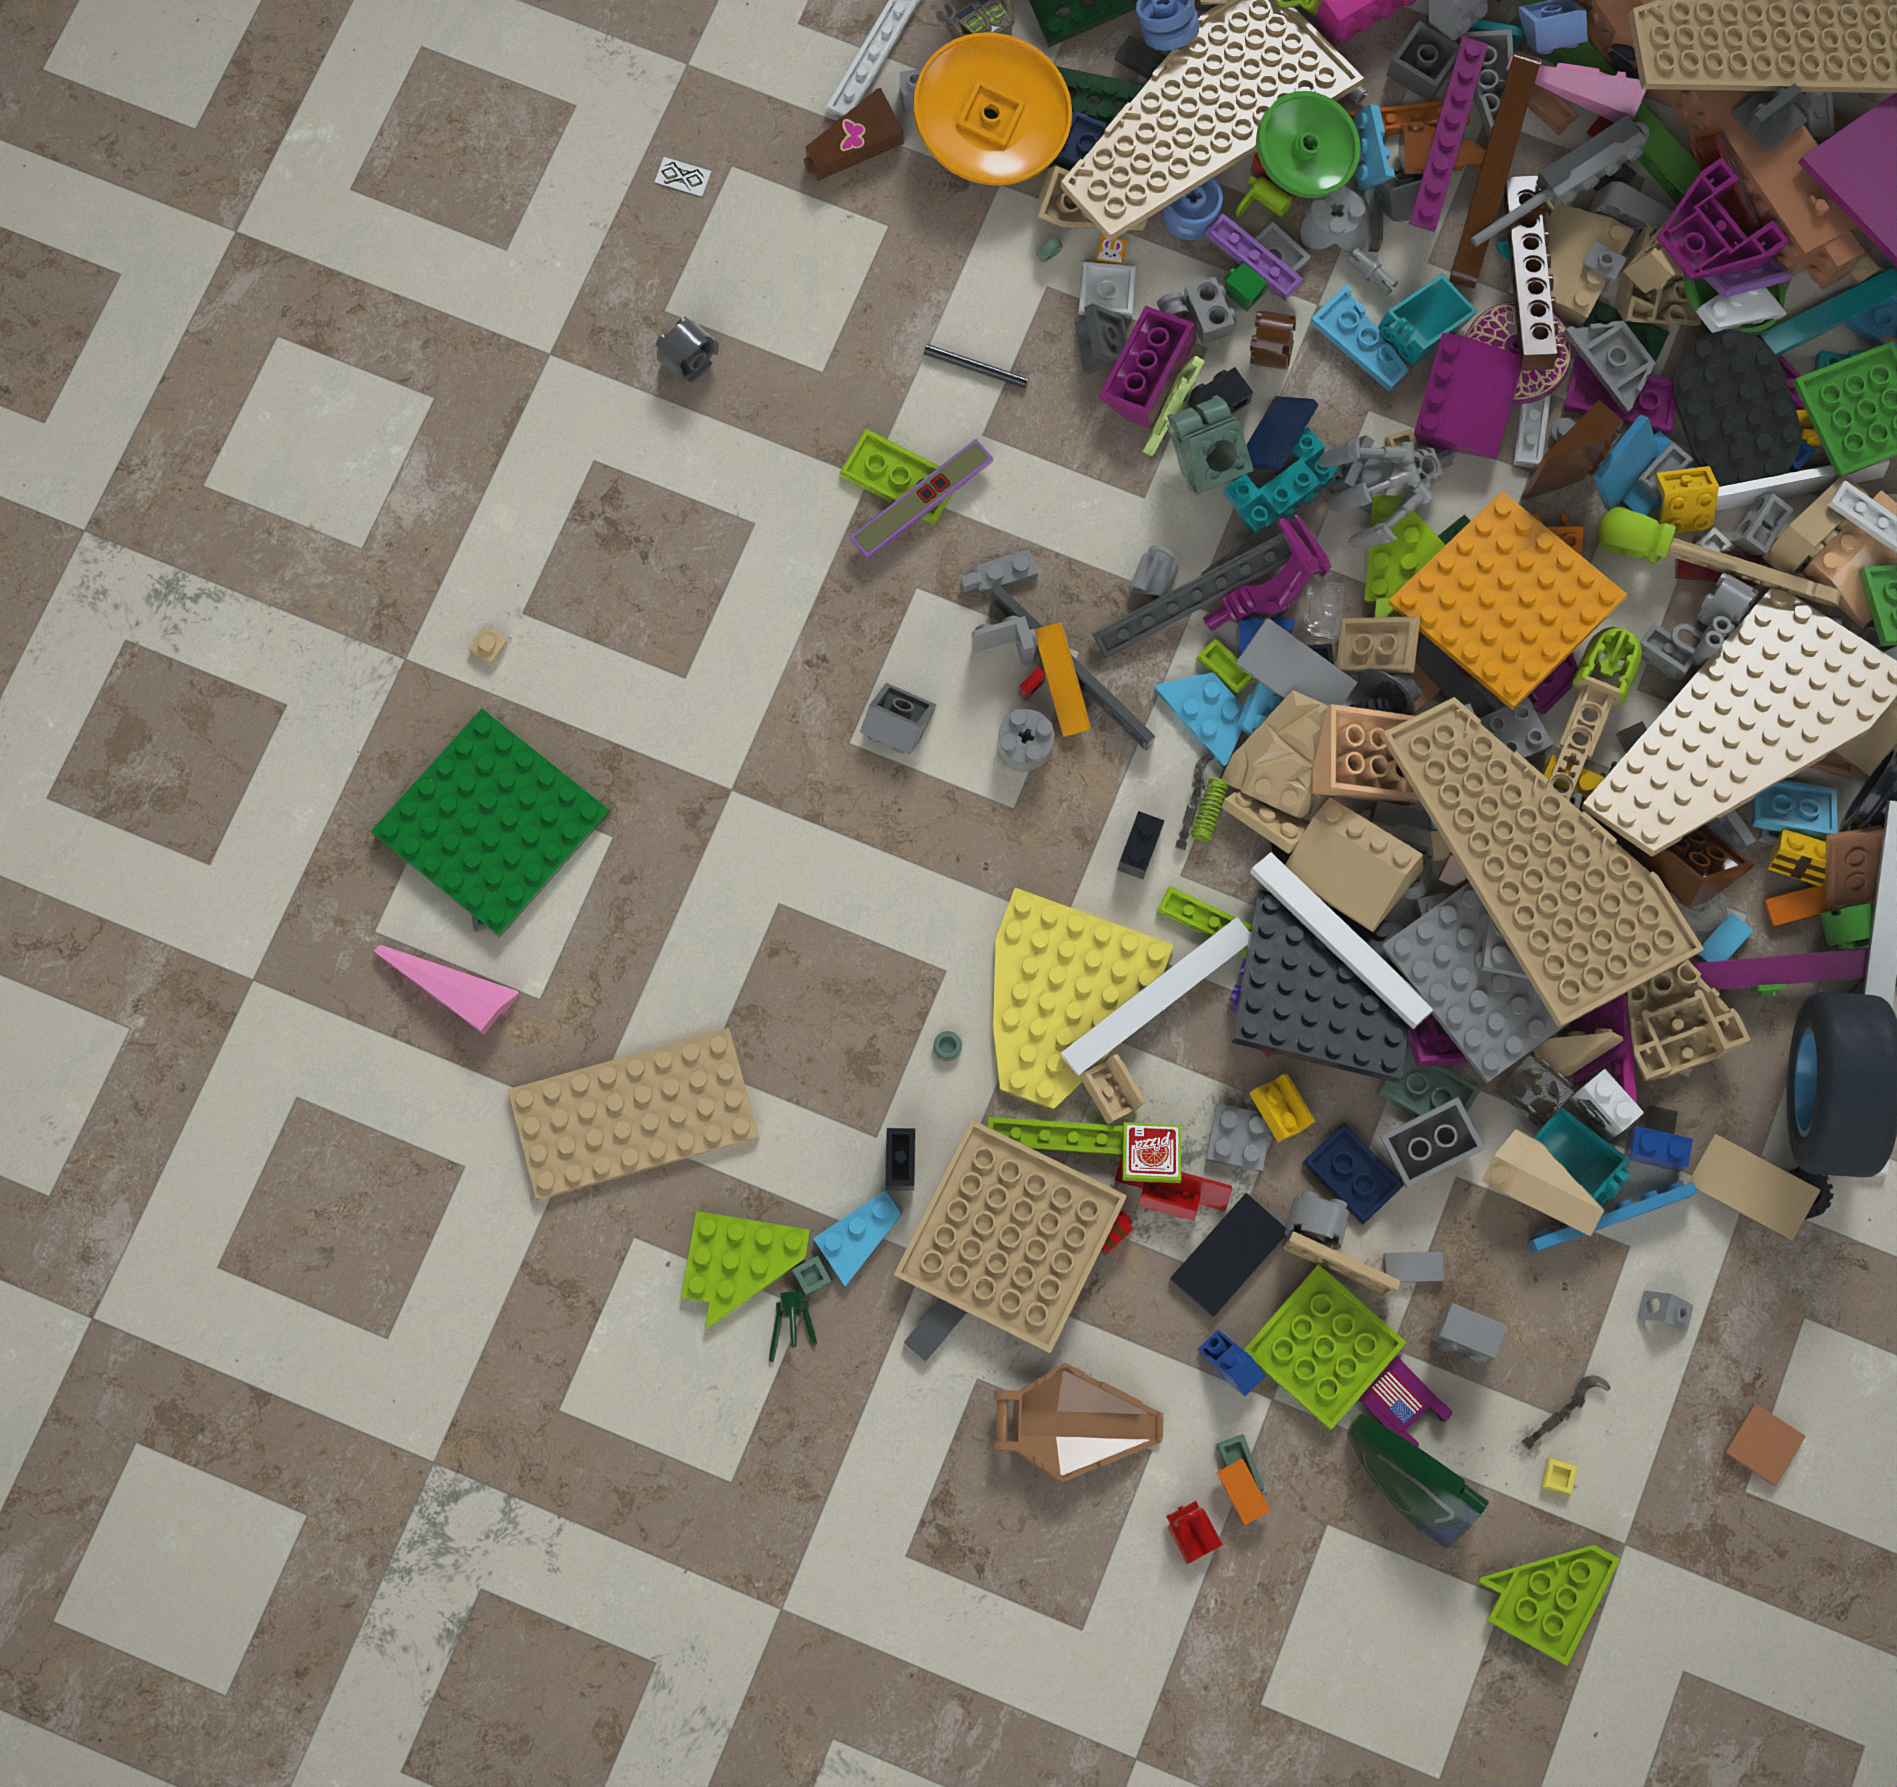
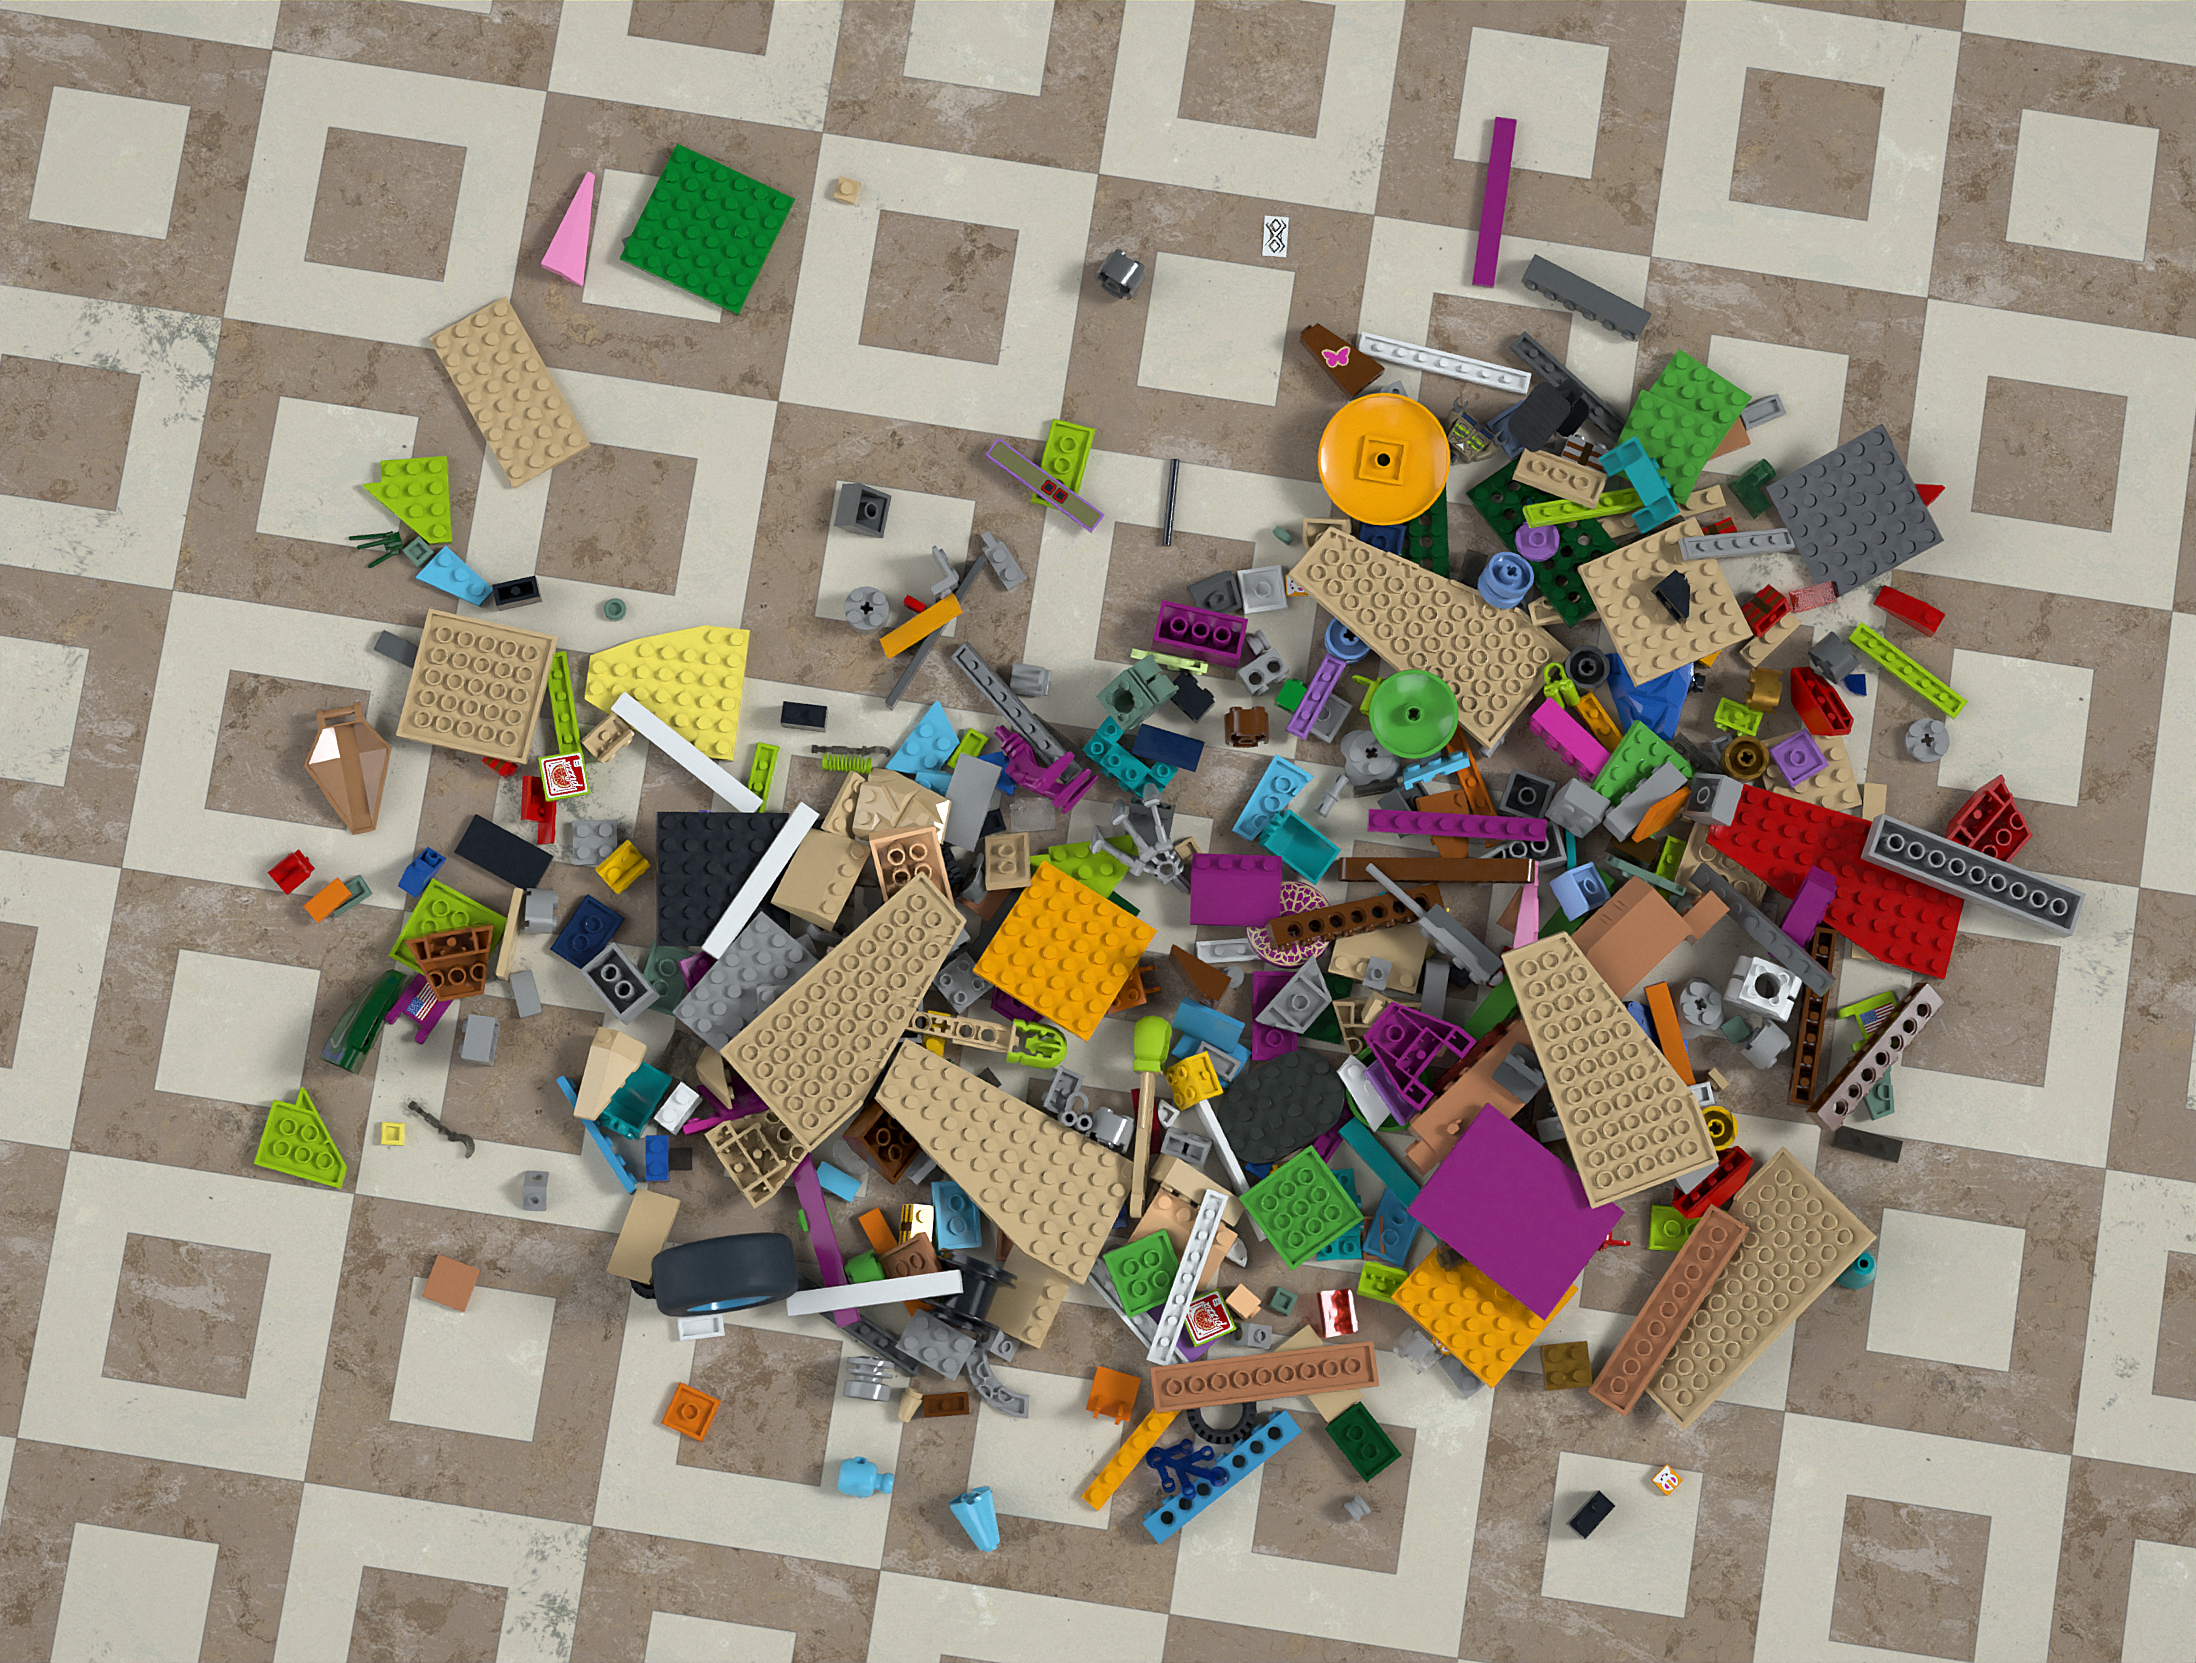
camera: 75 degrees right, 5 degrees up
(1358, 1341) = (454, 959): none -> dark orange wedge

